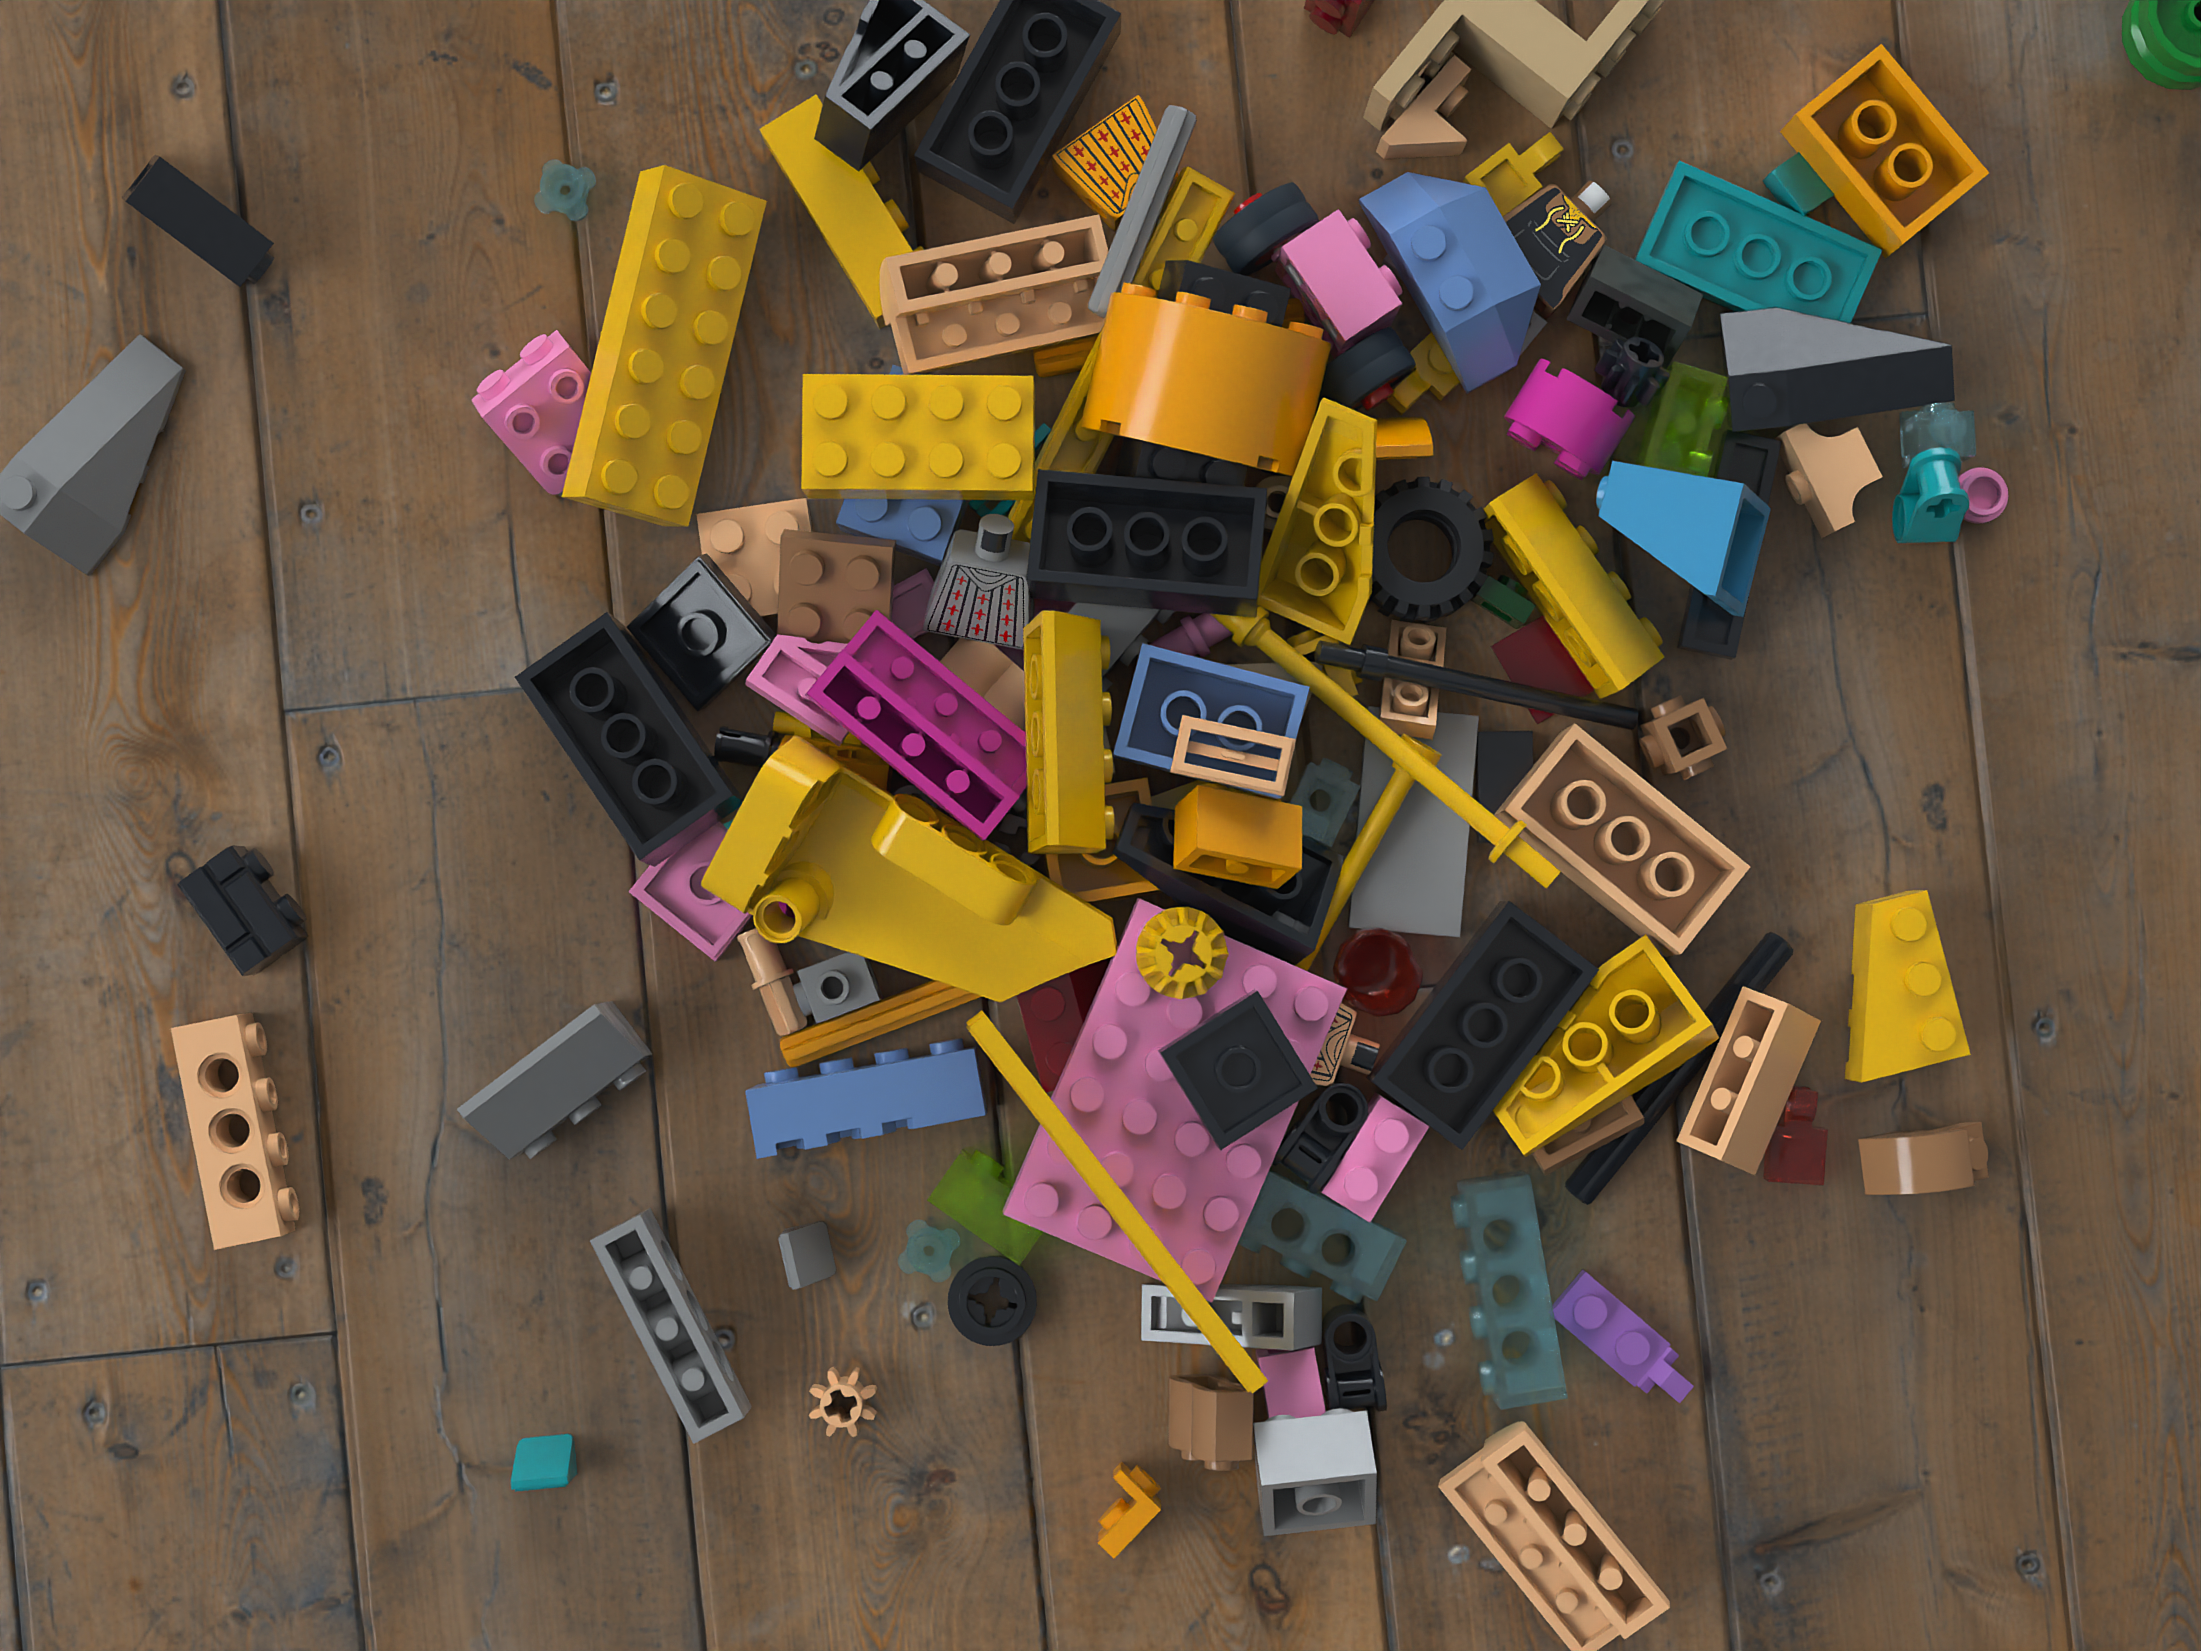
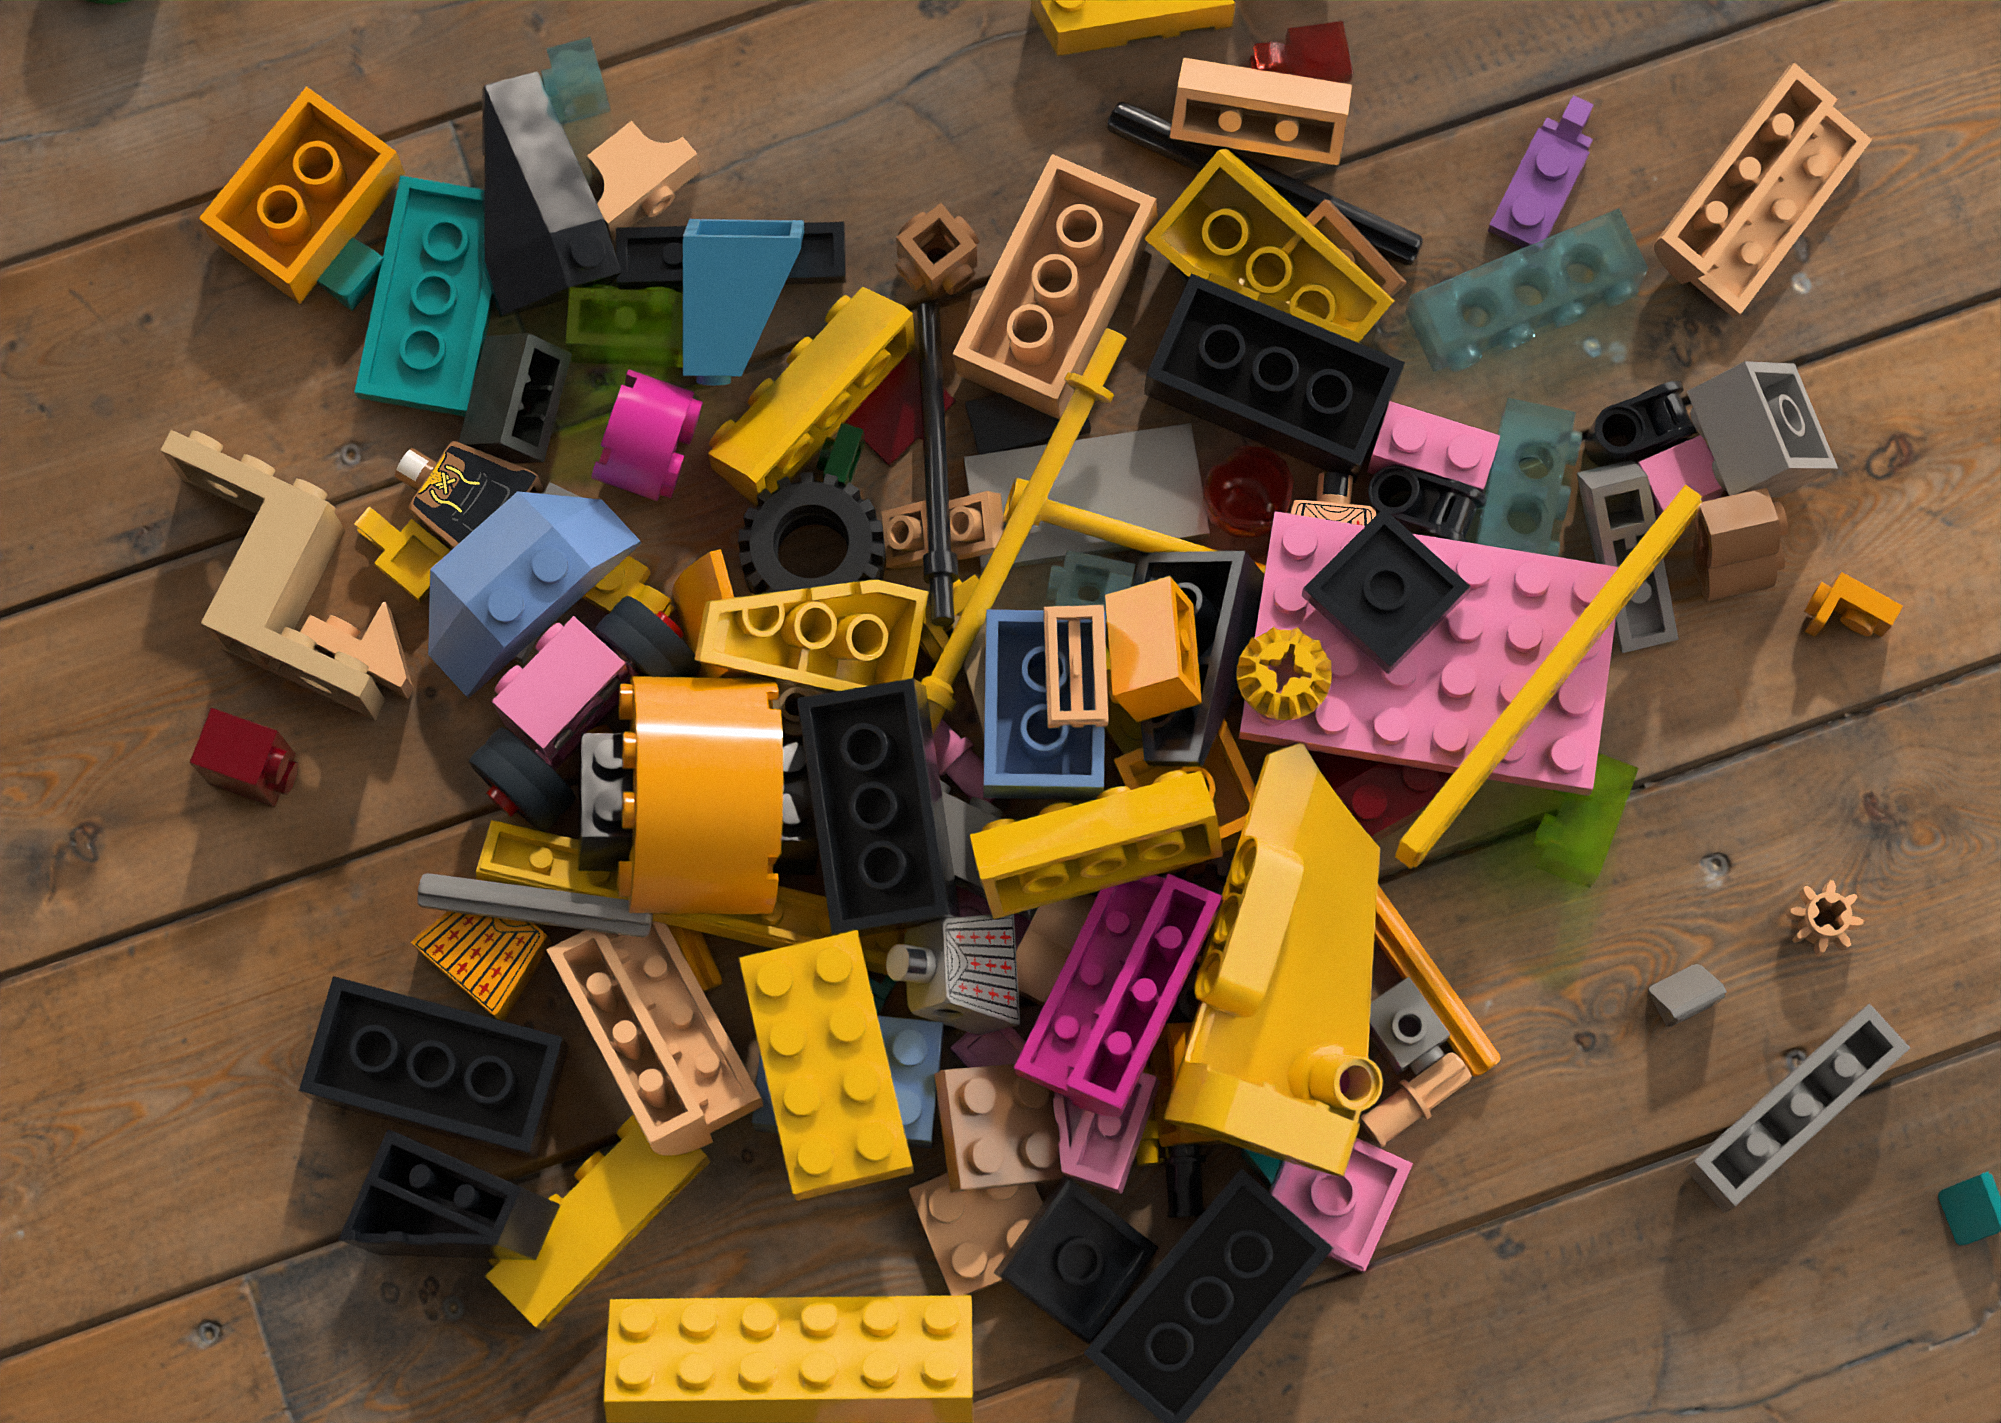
camera: 100 degrees left, 10 degrees down
(558, 1082) = (1581, 1289): light grey slope -> none
(866, 1098) = (1511, 968): medium blue wedge -> none
(942, 1241) = (1634, 881): clear light blue plate -> none
(1008, 1321) = (1698, 777): black gear -> none
(1632, 371) = (585, 381): black gear -> none
(1930, 499) = (642, 71): teal piece -> none
(1986, 494) = (623, 30): bright pink plate -> none

